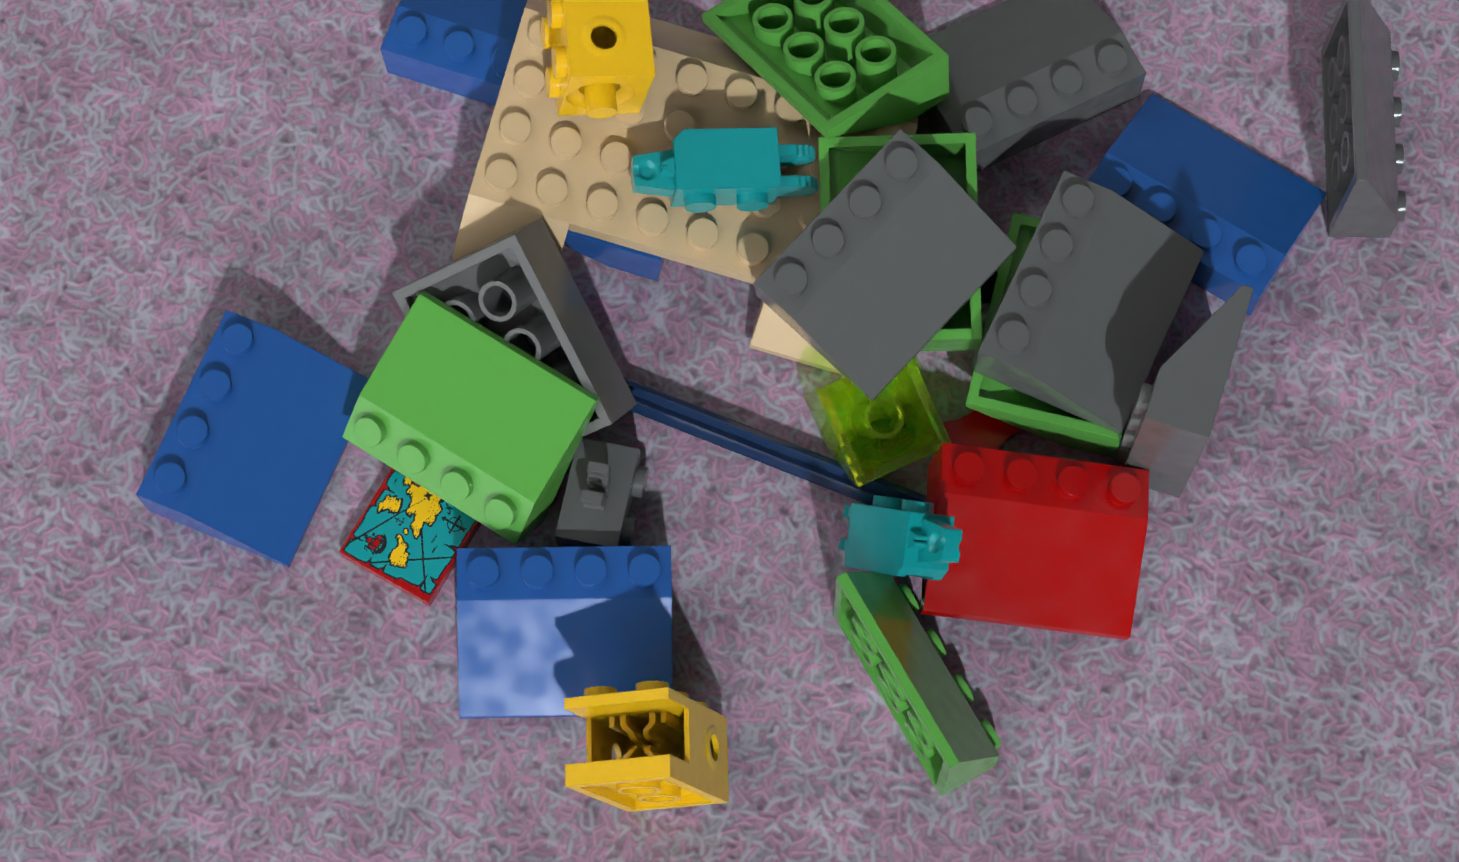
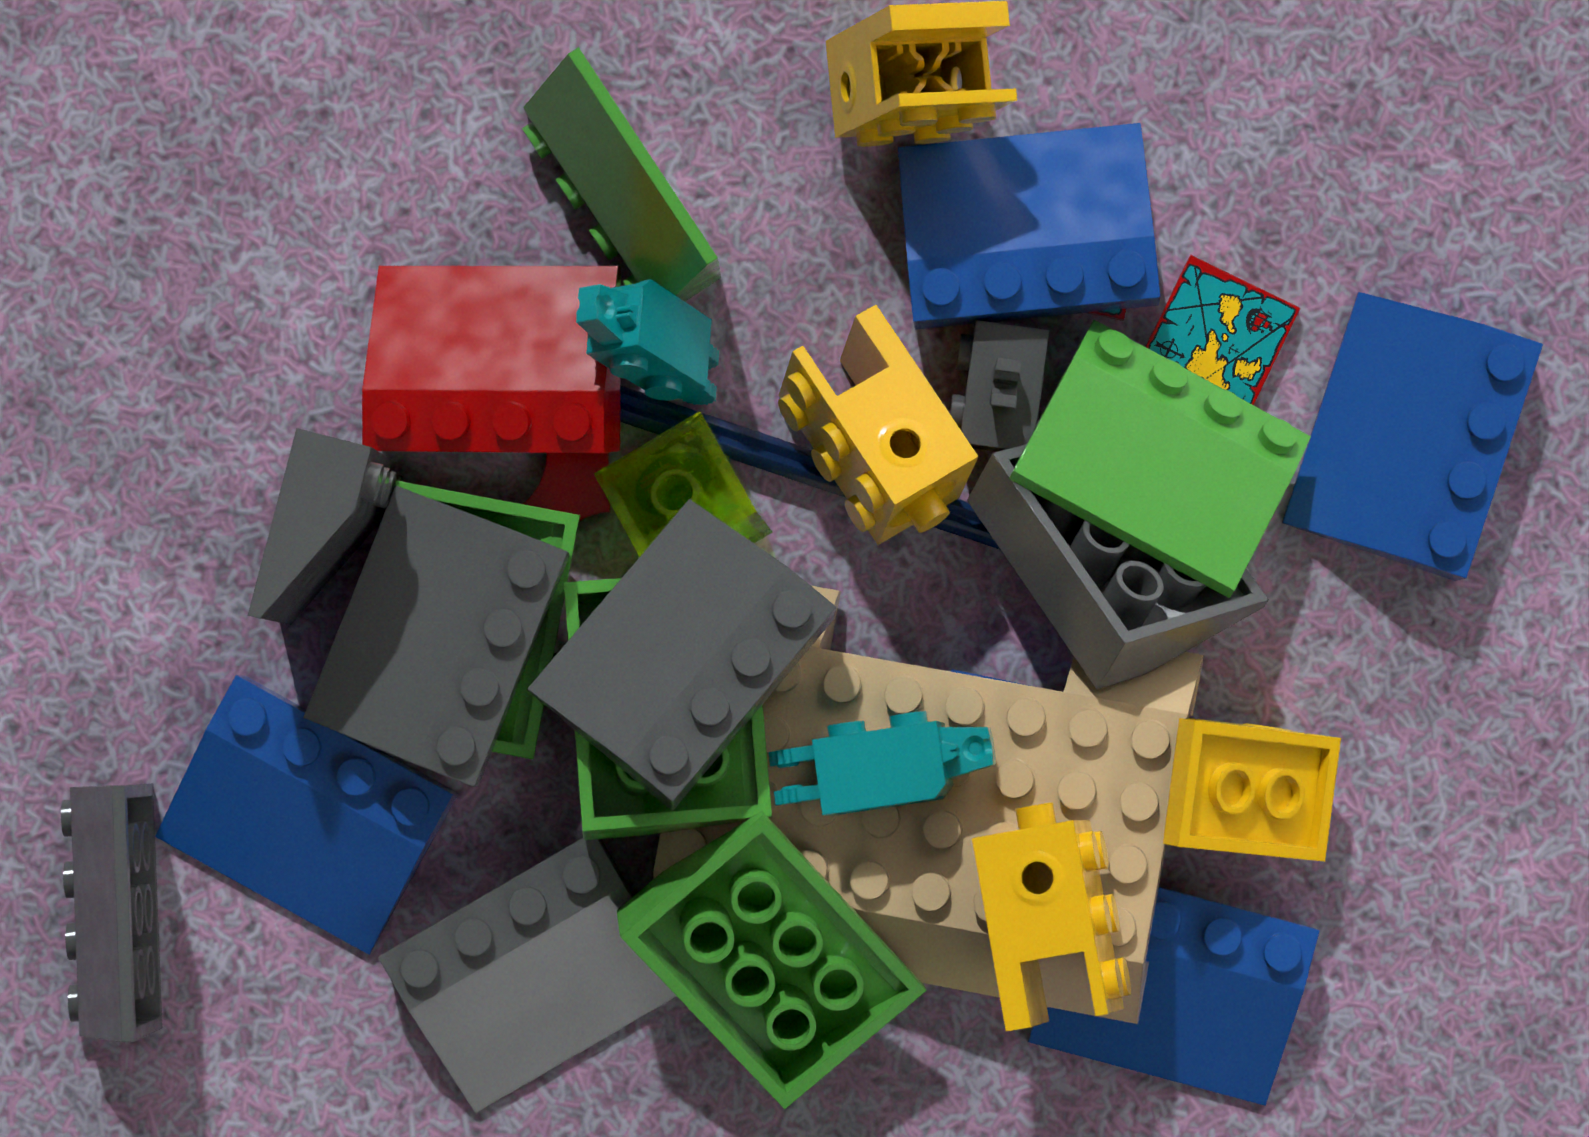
camera: 175 degrees right, 15 degrees up
(422, 151) = (1251, 789): none -> yellow torso
(702, 447) = (885, 437): none -> yellow torso

